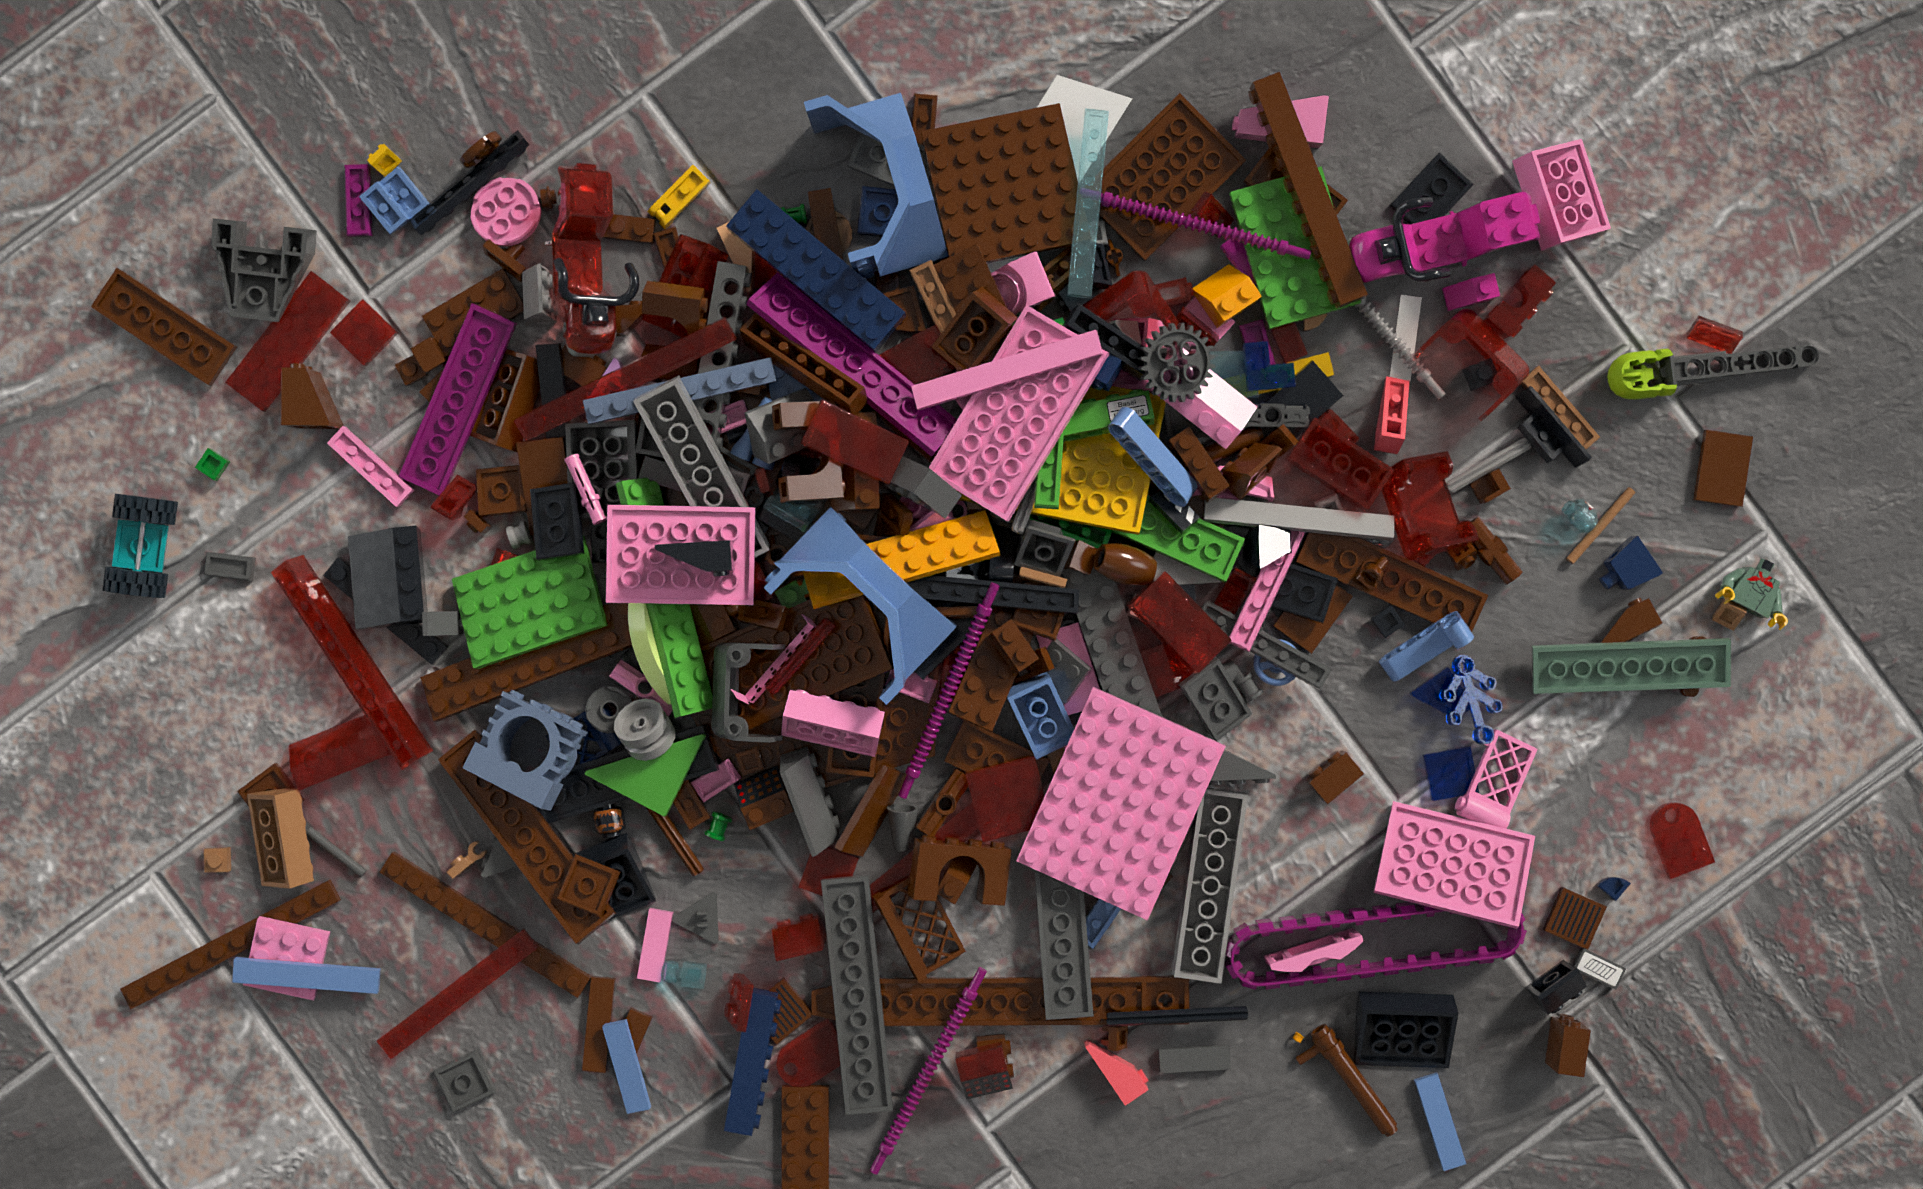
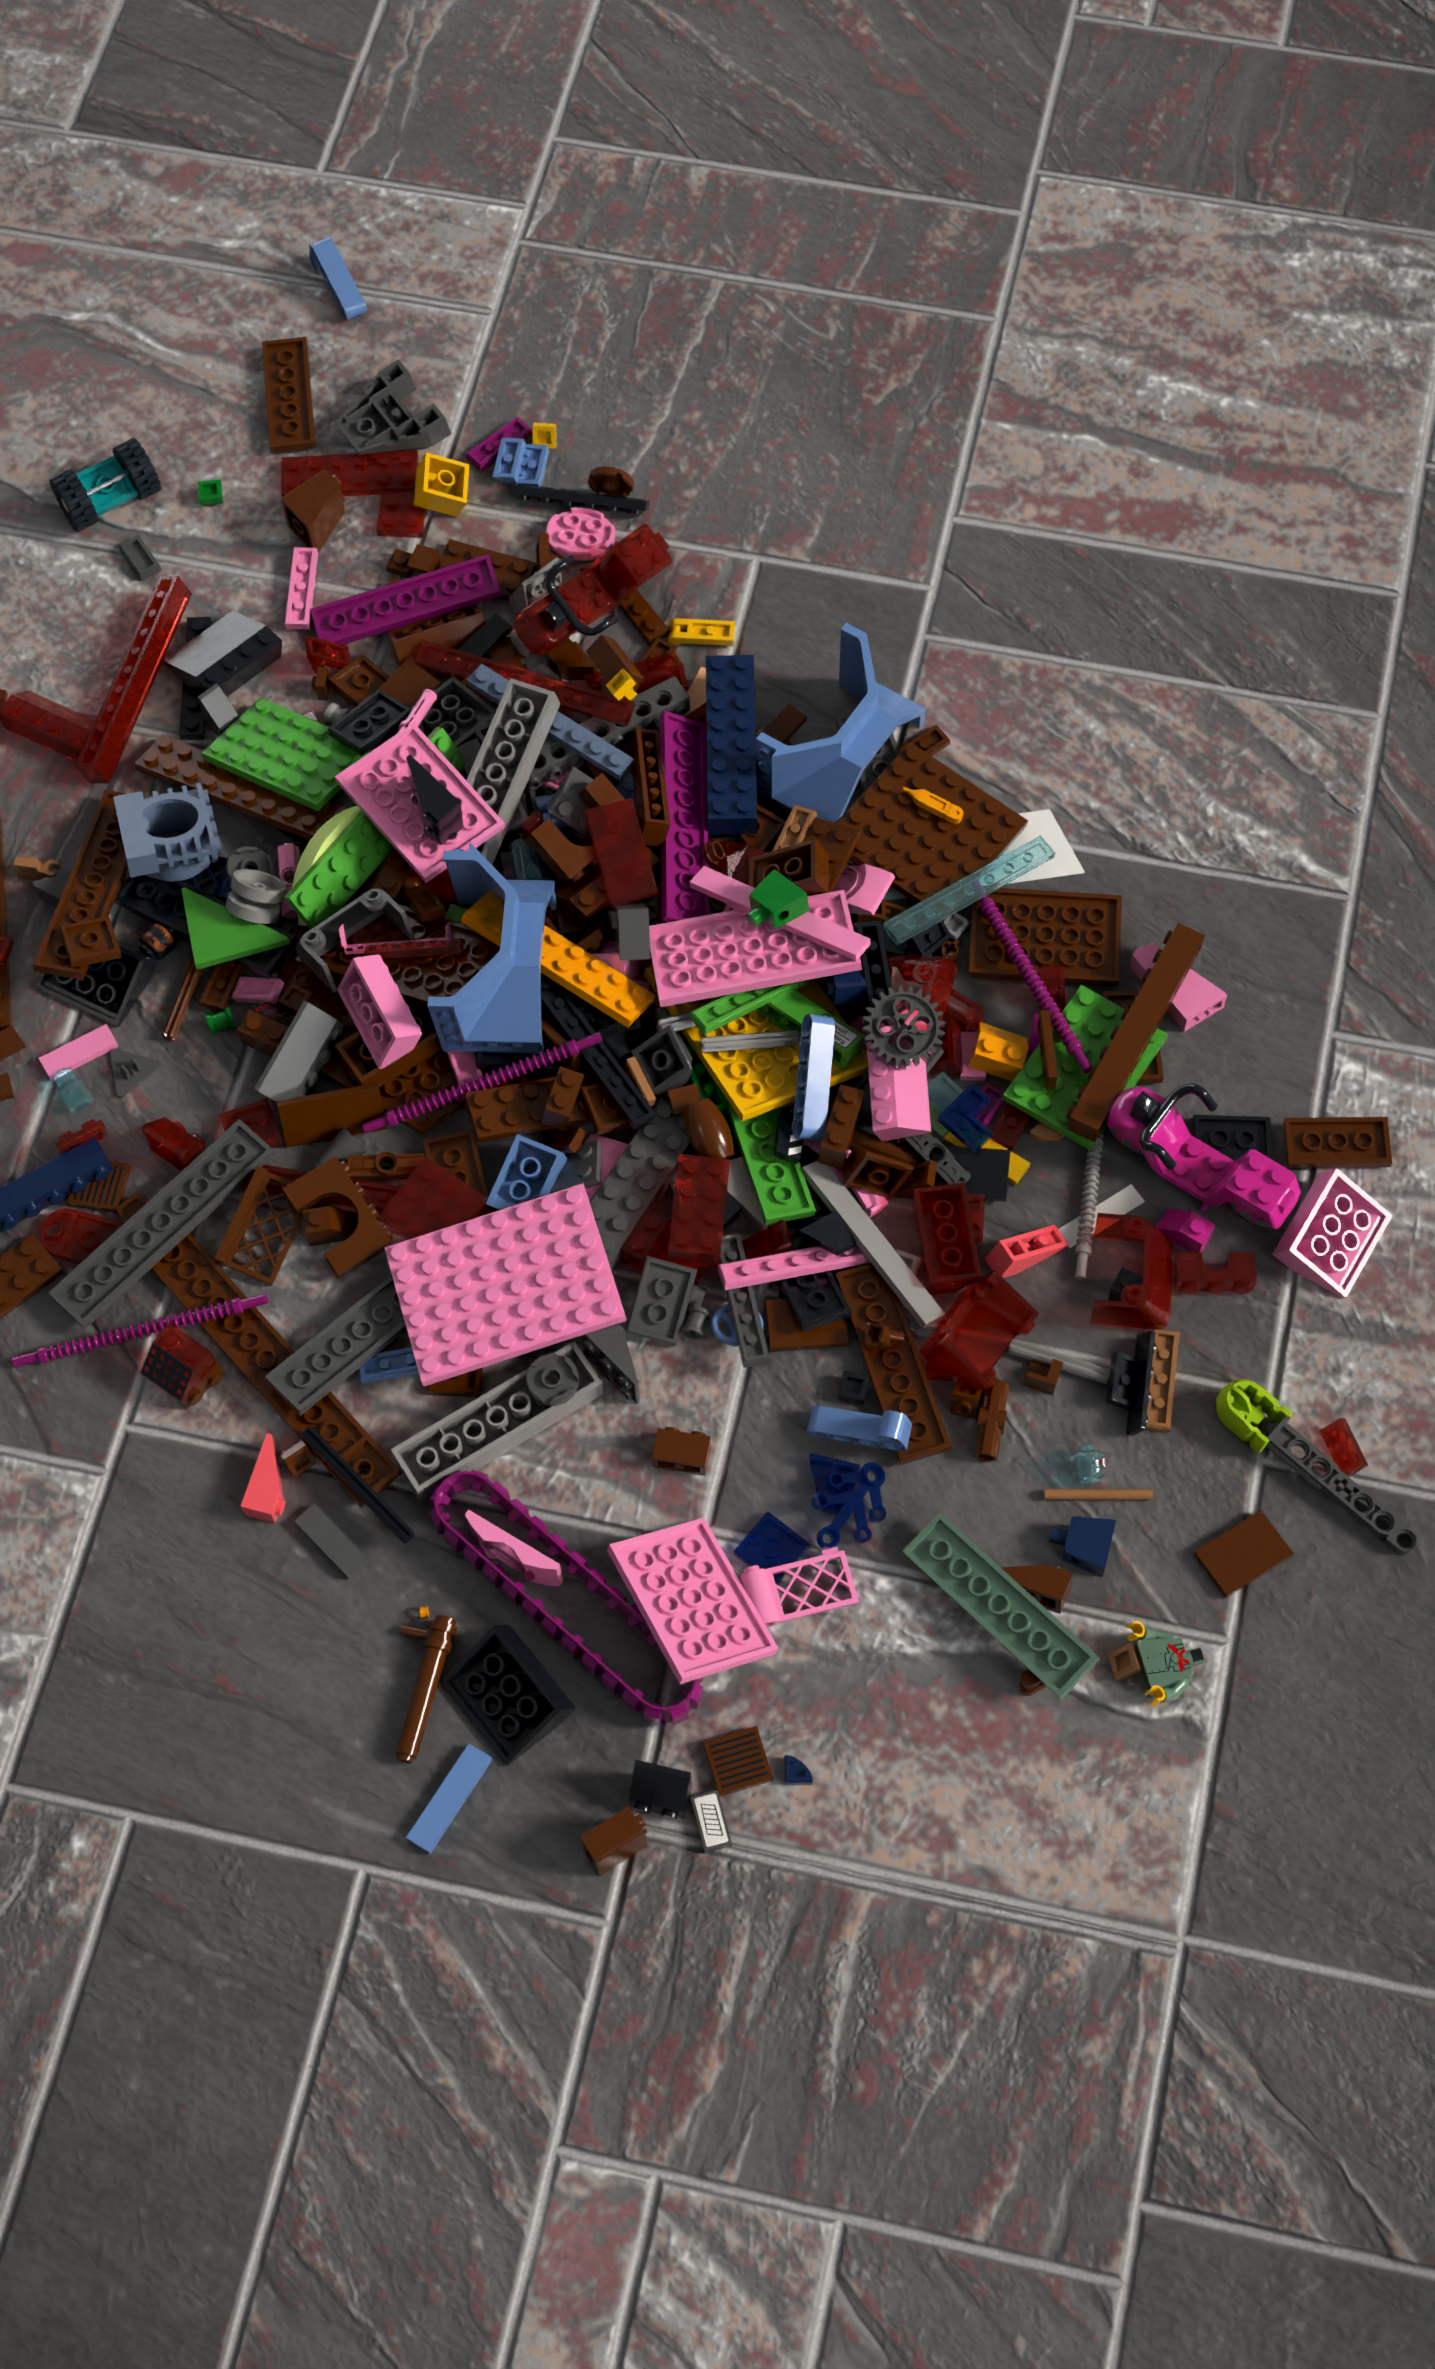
camera: 55 degrees right, 25 degrees down
(77, 195) = (328, 261): none -> medium blue beam
(368, 283) = (441, 484): none -> yellow brick
(704, 316) = (622, 685): none -> yellow tile
(797, 214) = (763, 714): green bush -> none
(900, 366) = (713, 852): none -> reddish brown plate
(996, 163) = (936, 805): none -> light orange piece
(1002, 369) = (776, 901): none -> green torso
(1081, 473) = (750, 1041): none -> light grey axle
(1228, 838) = (552, 1394): none -> dark grey tile
(1269, 269) = (1047, 1050): none -> reddish brown tile
(1499, 124) = (1337, 1142): none -> reddish brown plate
(1680, 841) = (889, 1796): clear red plate -> none

